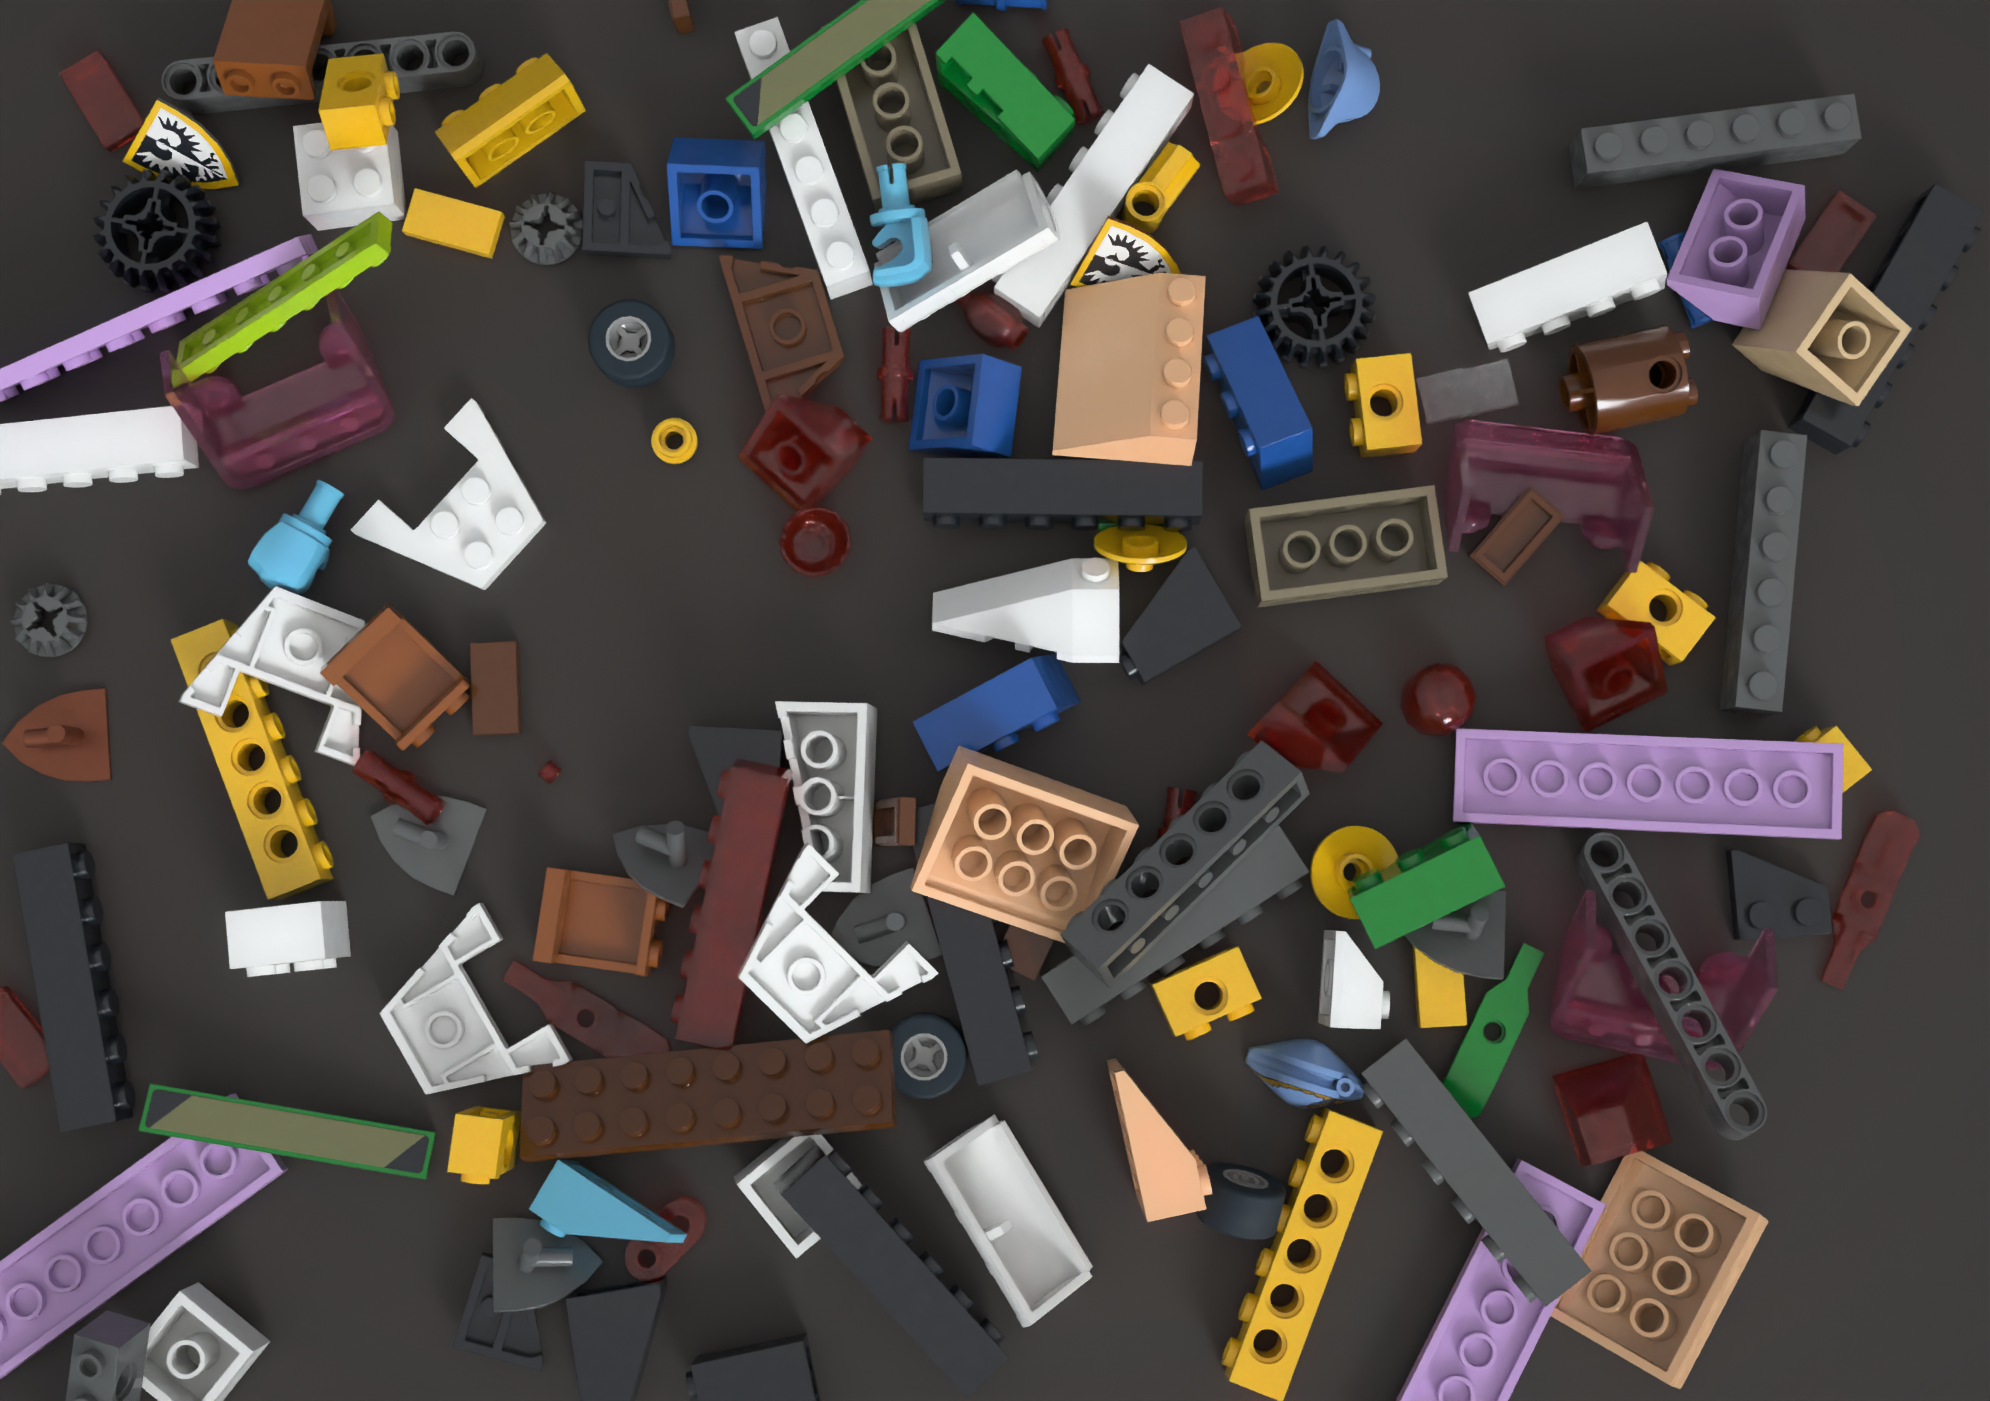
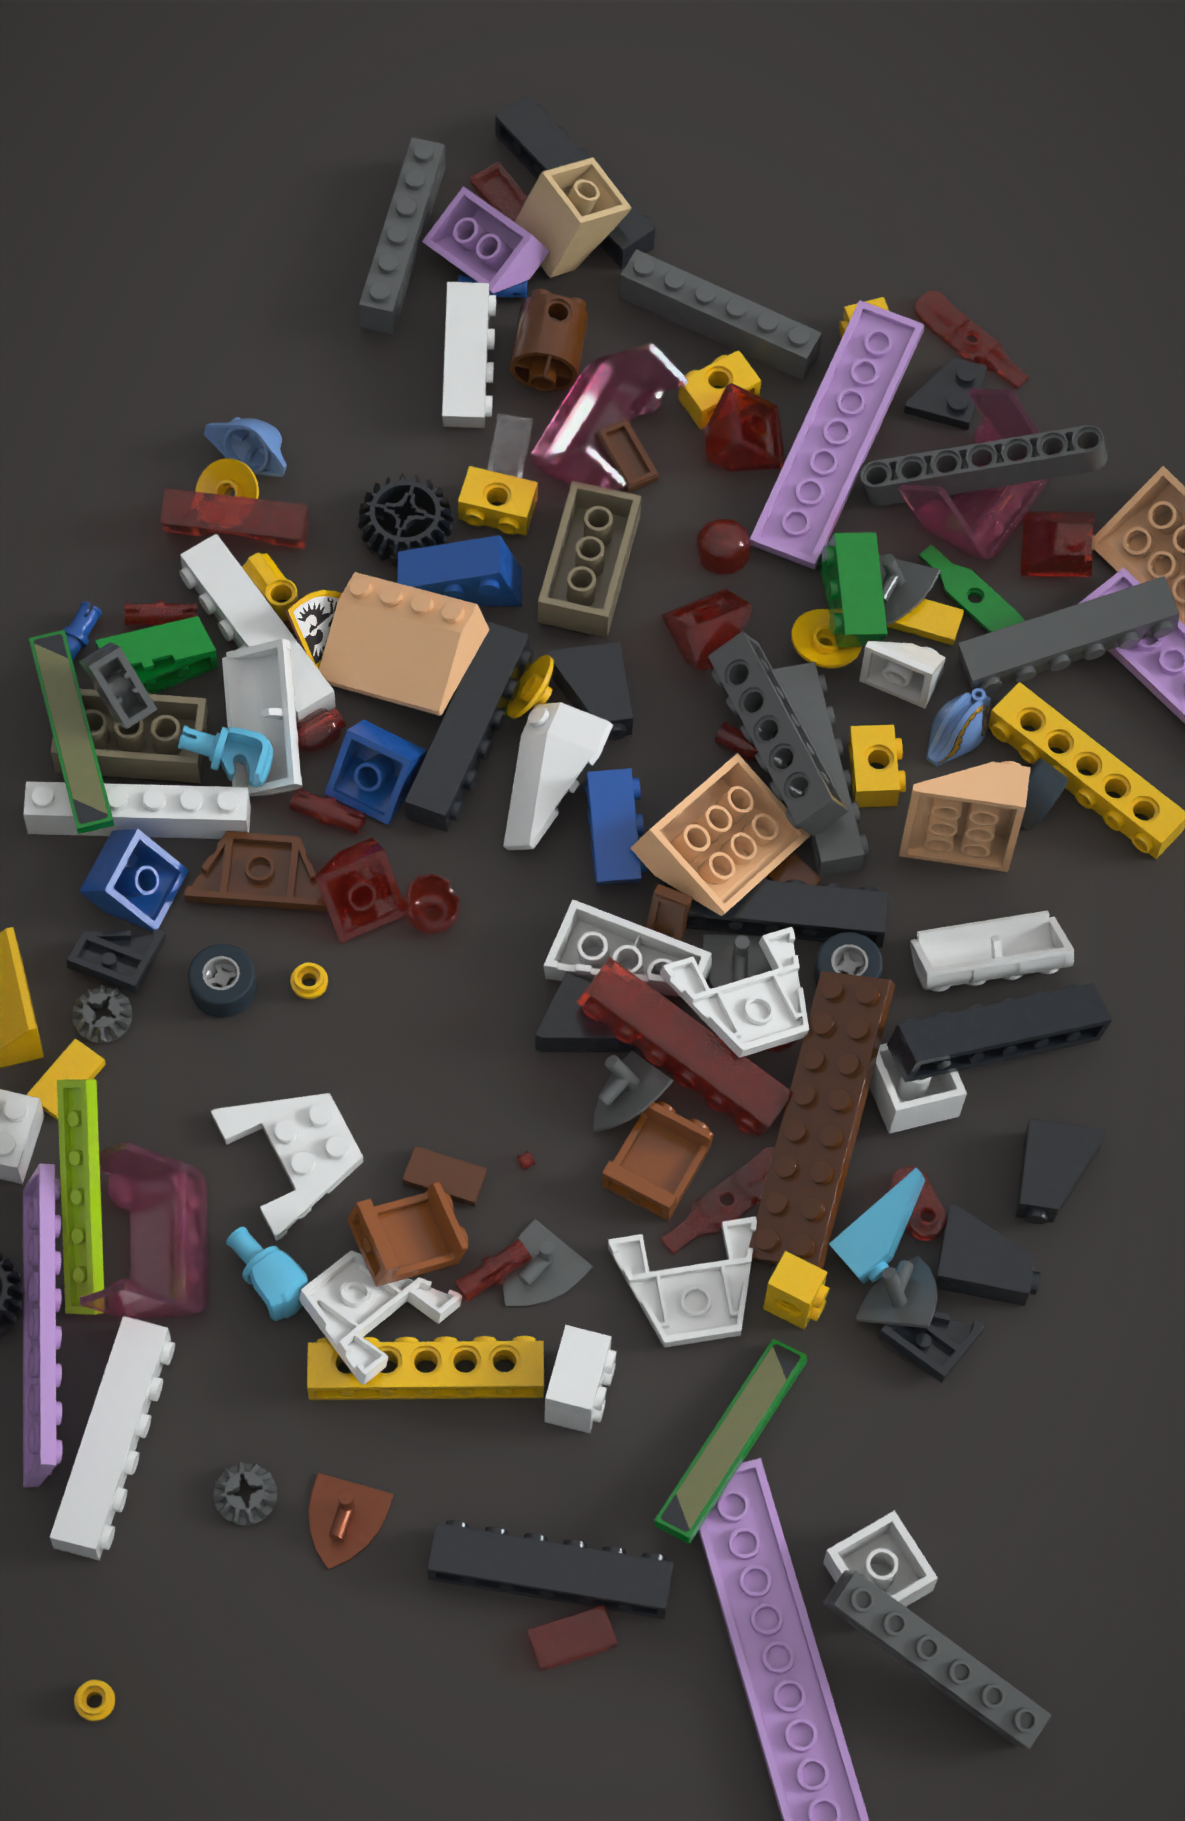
camera: 75 degrees left, 20 degrees down
(912, 63) = (118, 685): none -> dark grey brick

